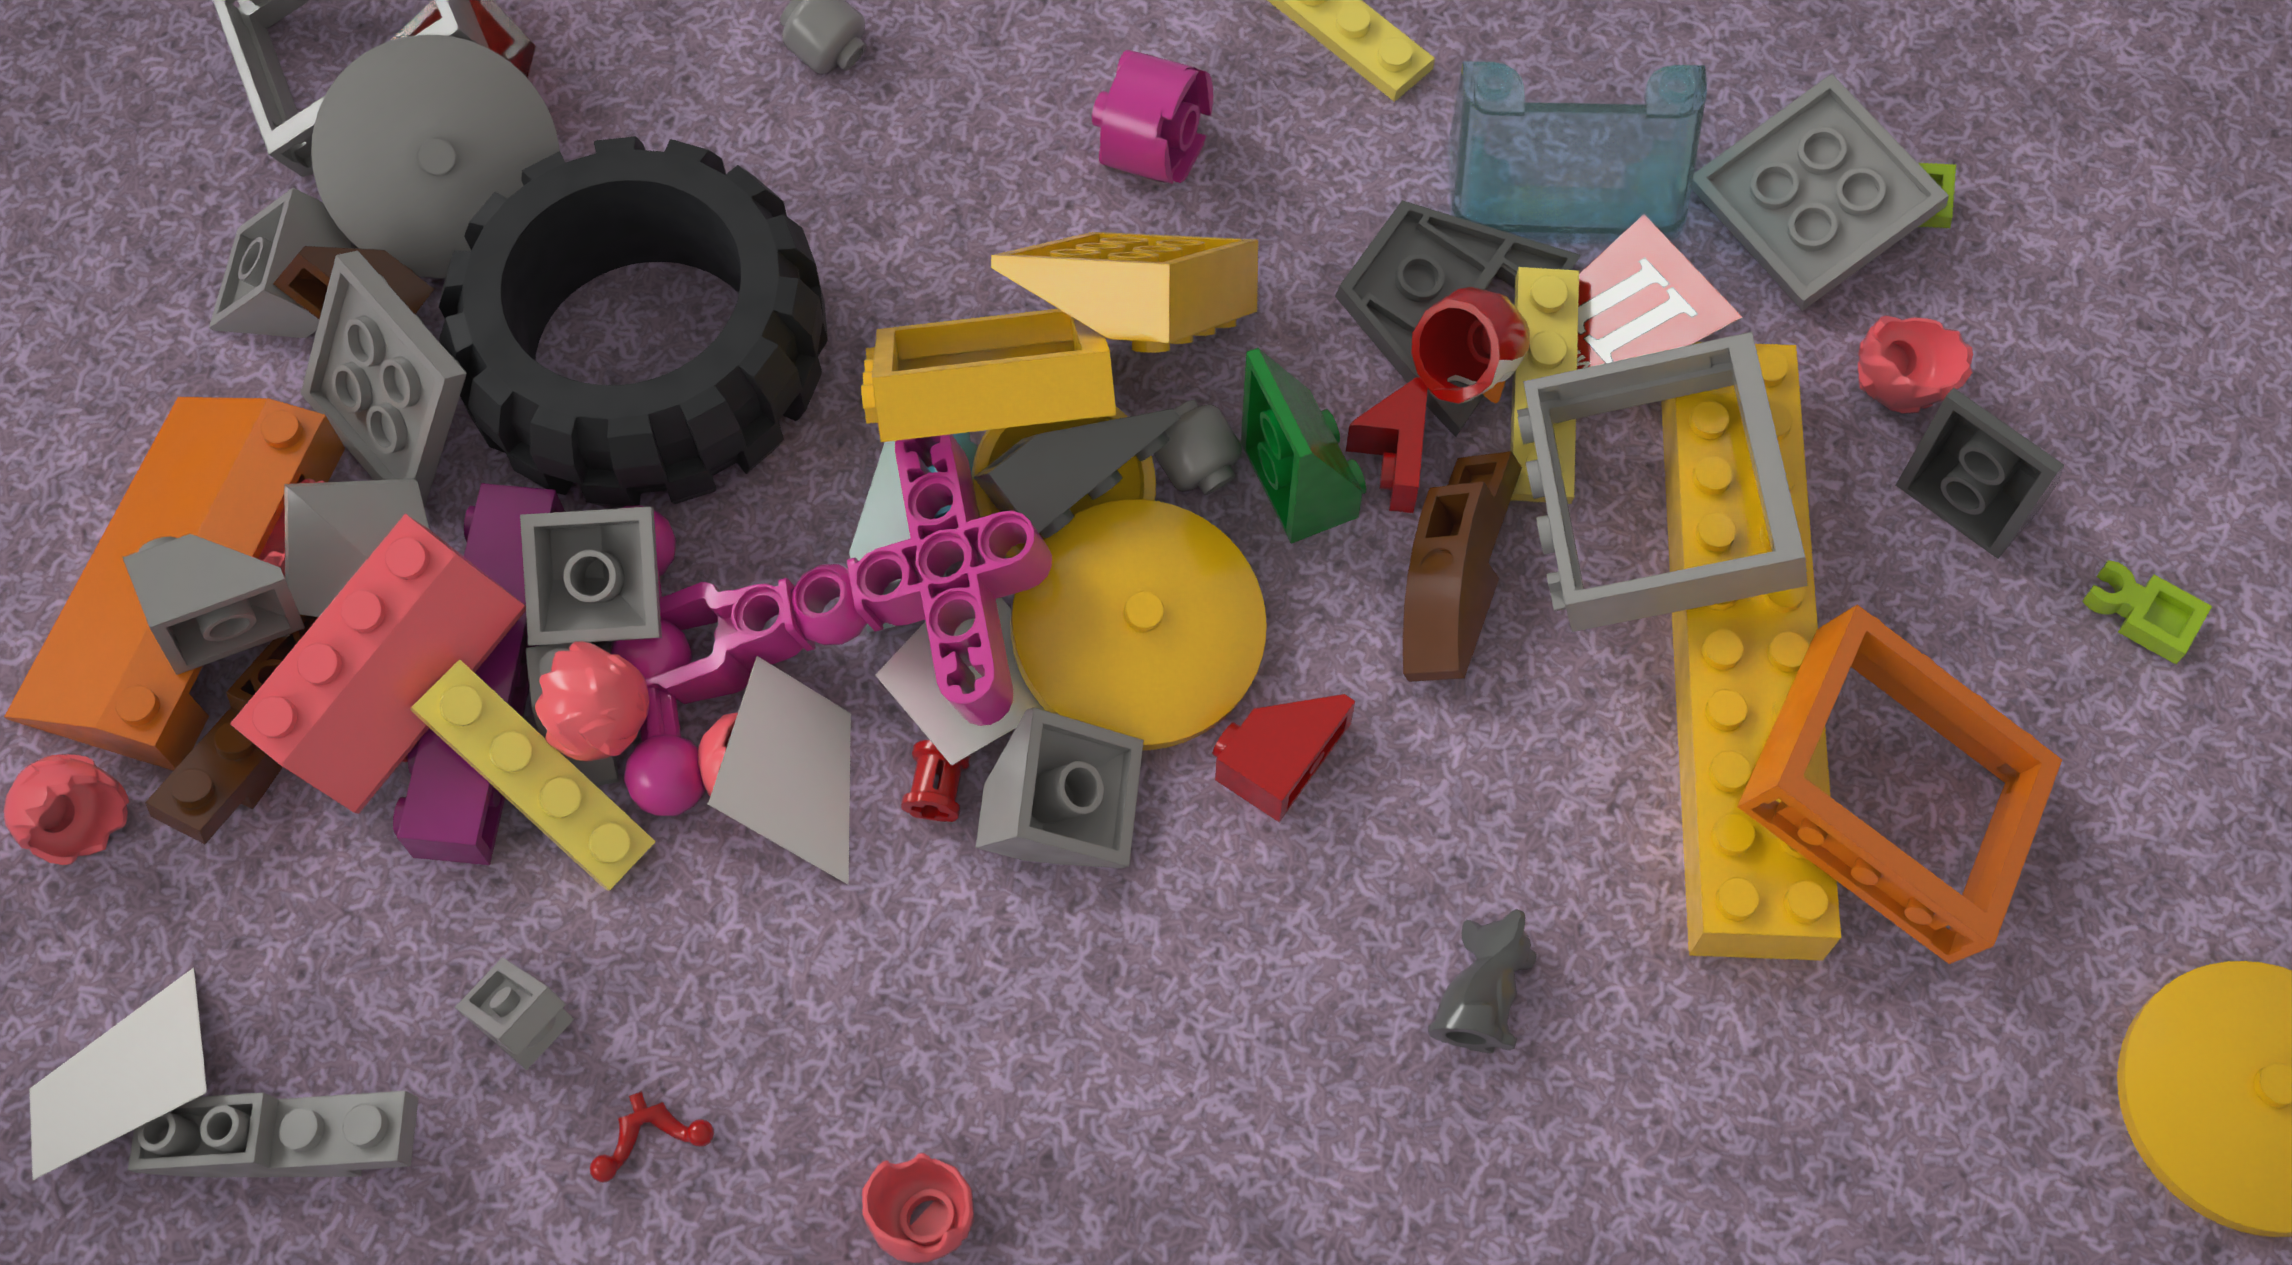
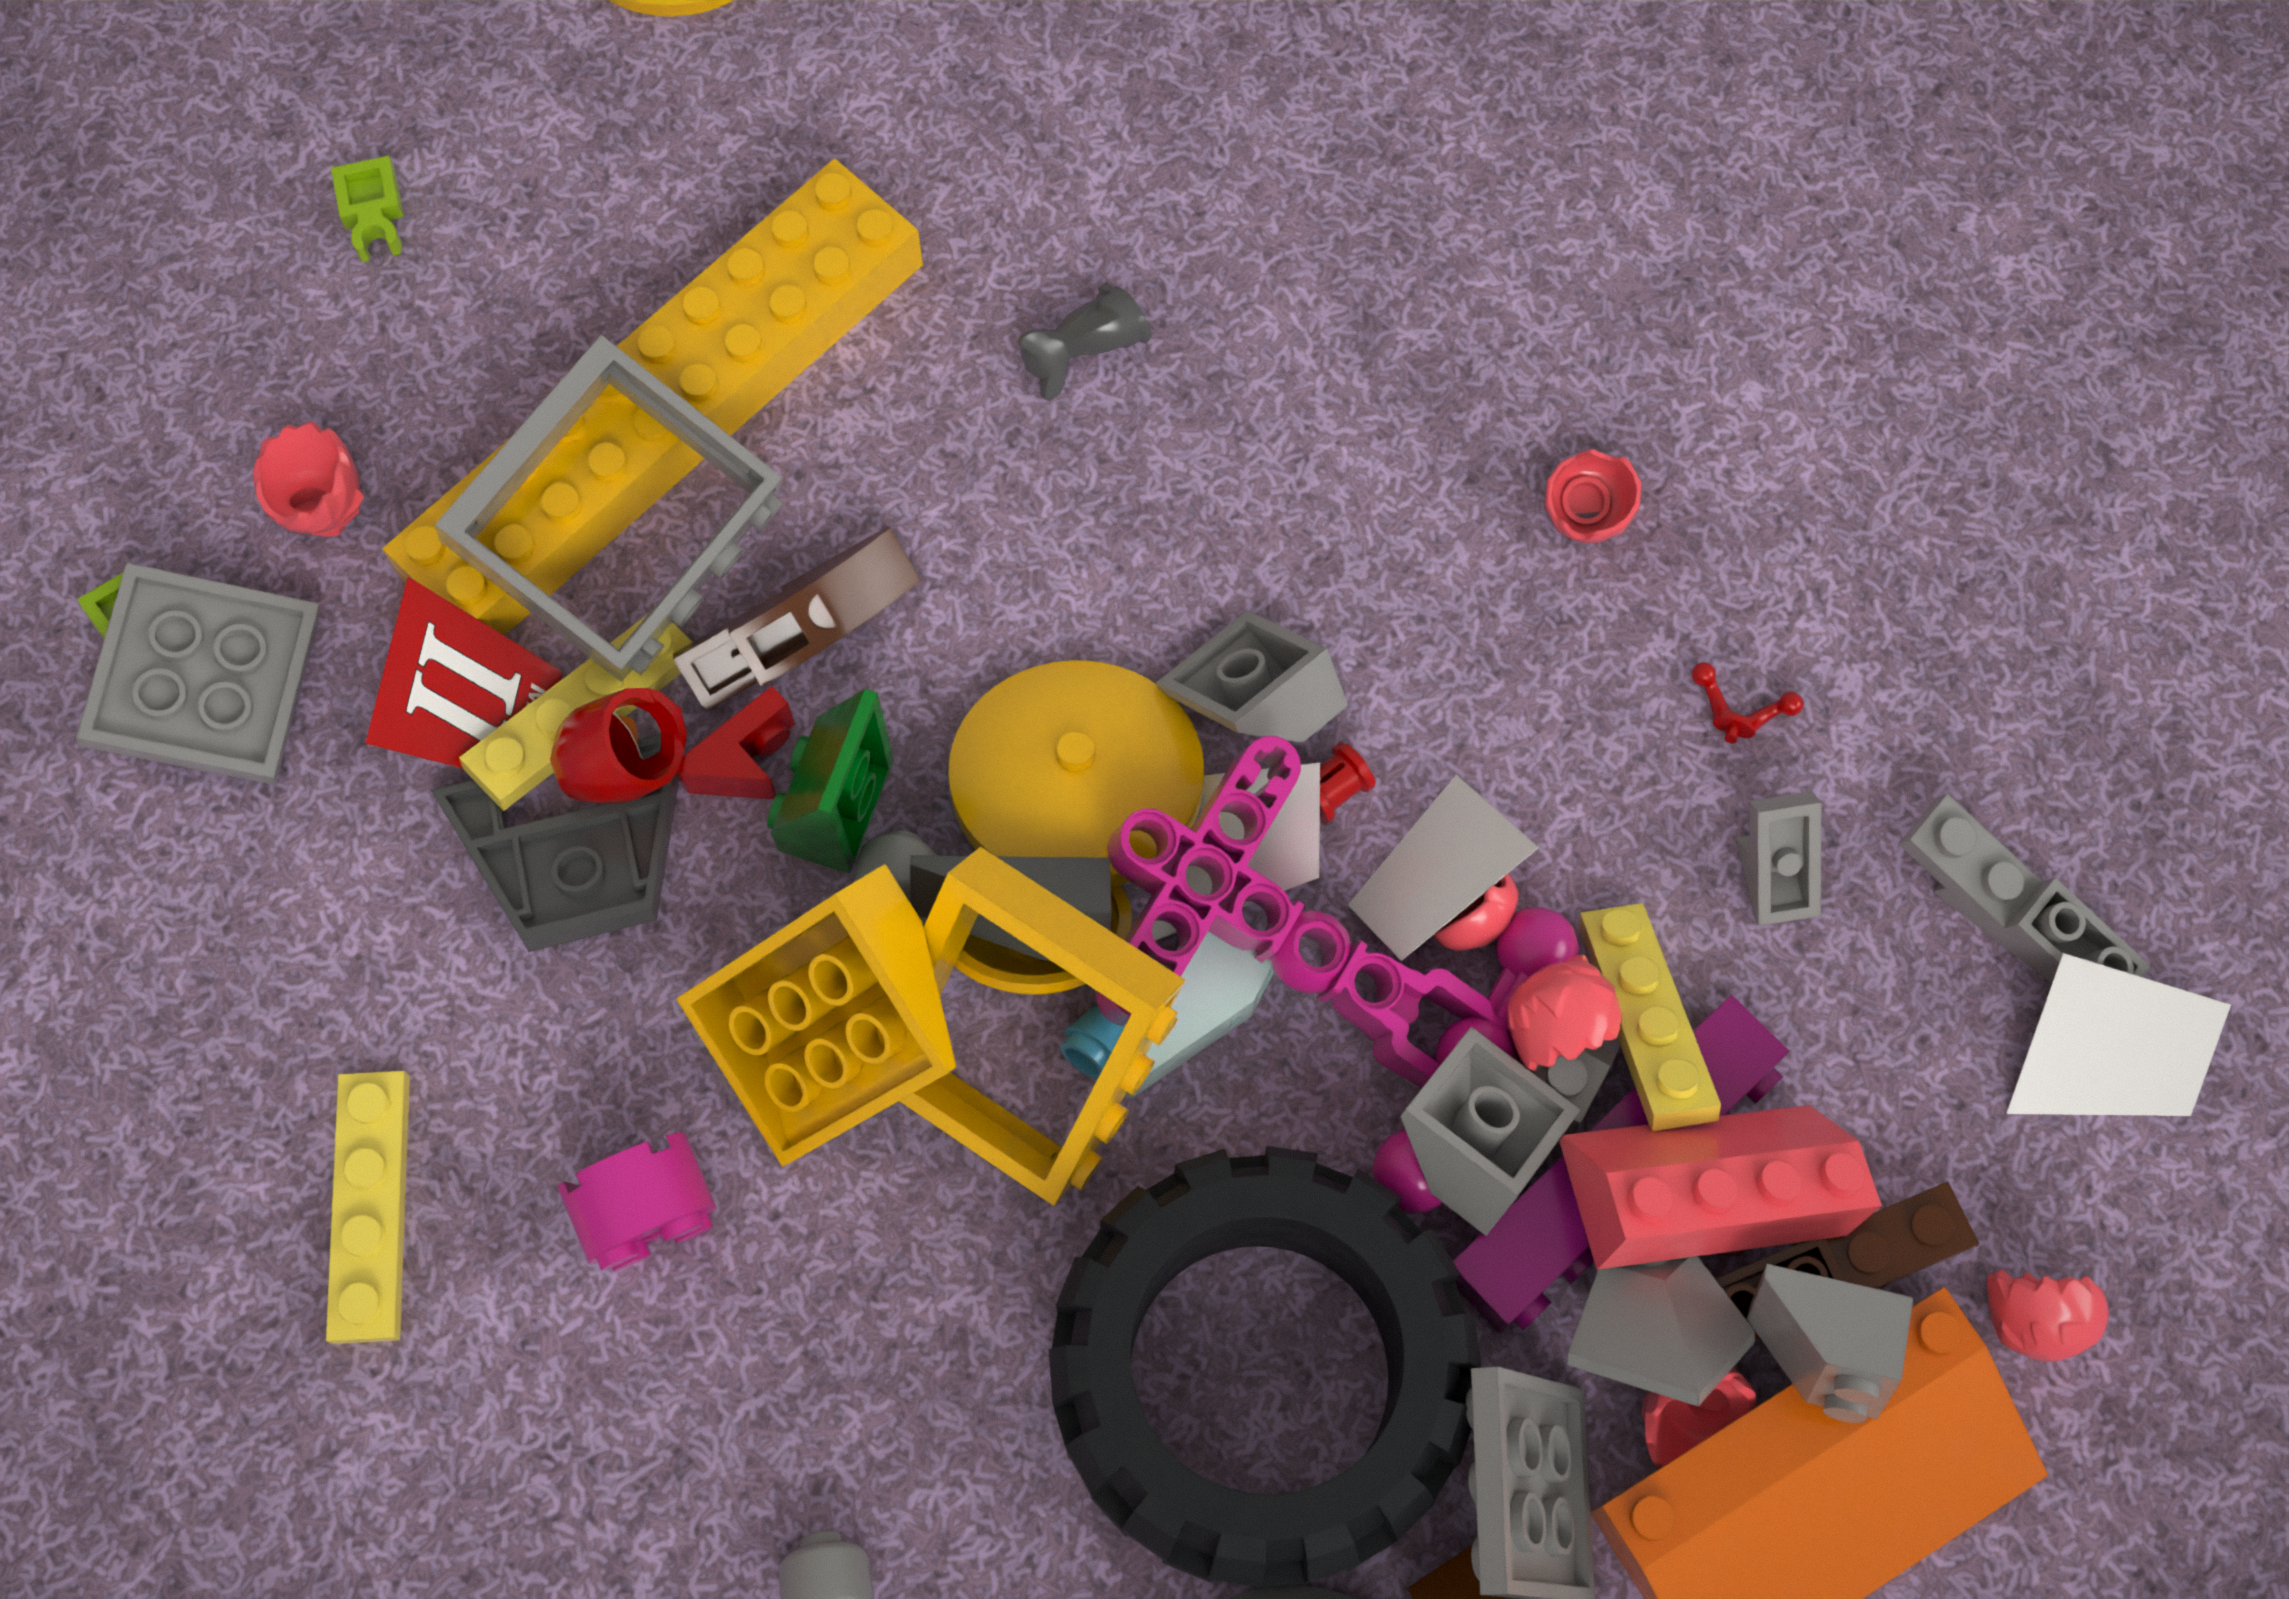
camera: 140 degrees left, 5 degrees up
(1280, 750) = (1062, 595): red slope -> none
(1573, 166) = (416, 895): clear light blue windscreen -> none
(1854, 850) = (708, 265): orange window -> none
(1979, 474) = (369, 354): dark grey slope -> none

